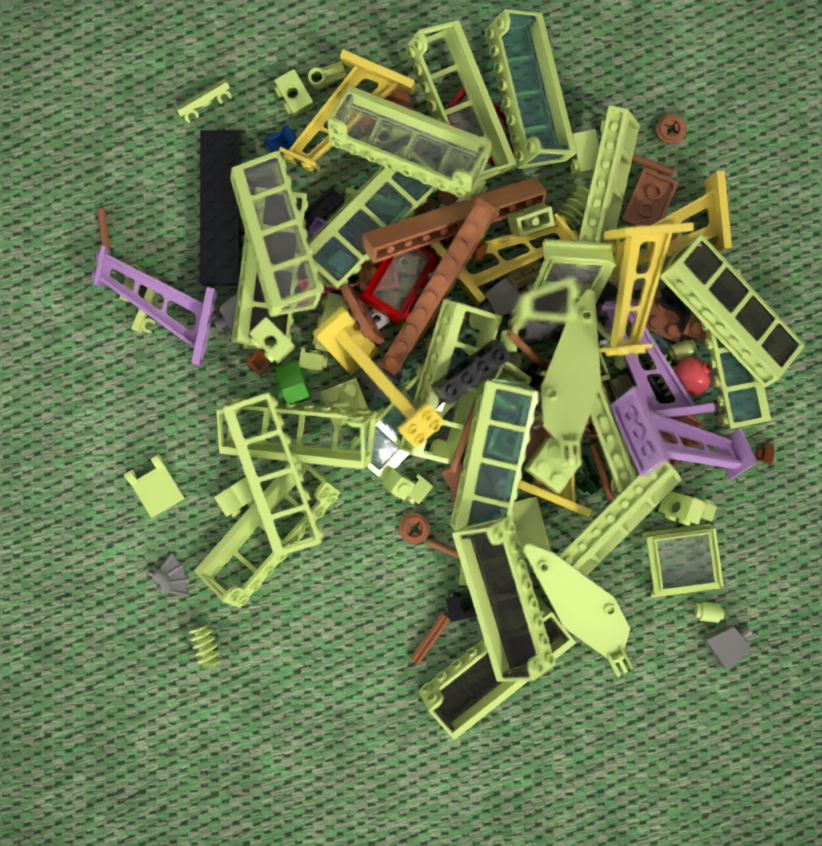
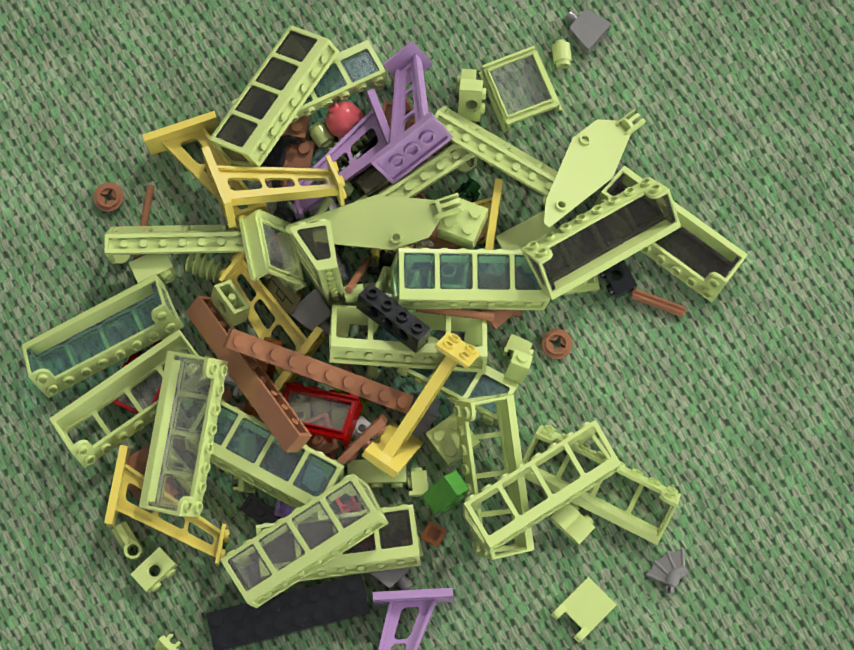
camera: 100 degrees left, 10 degrees down
(205, 646) = (727, 515): yellowish green piece -> none
(265, 330) = (412, 506): yellowish green brick -> none
(283, 139) = (205, 570): blue bracket -> none
(442, 547) = (568, 308): nougat bar -> none
(601, 471) = (454, 183): nougat bar -> none
(649, 199) = (182, 200): nougat plate -> none
(767, 454) = (400, 35): dark orange tile -> none

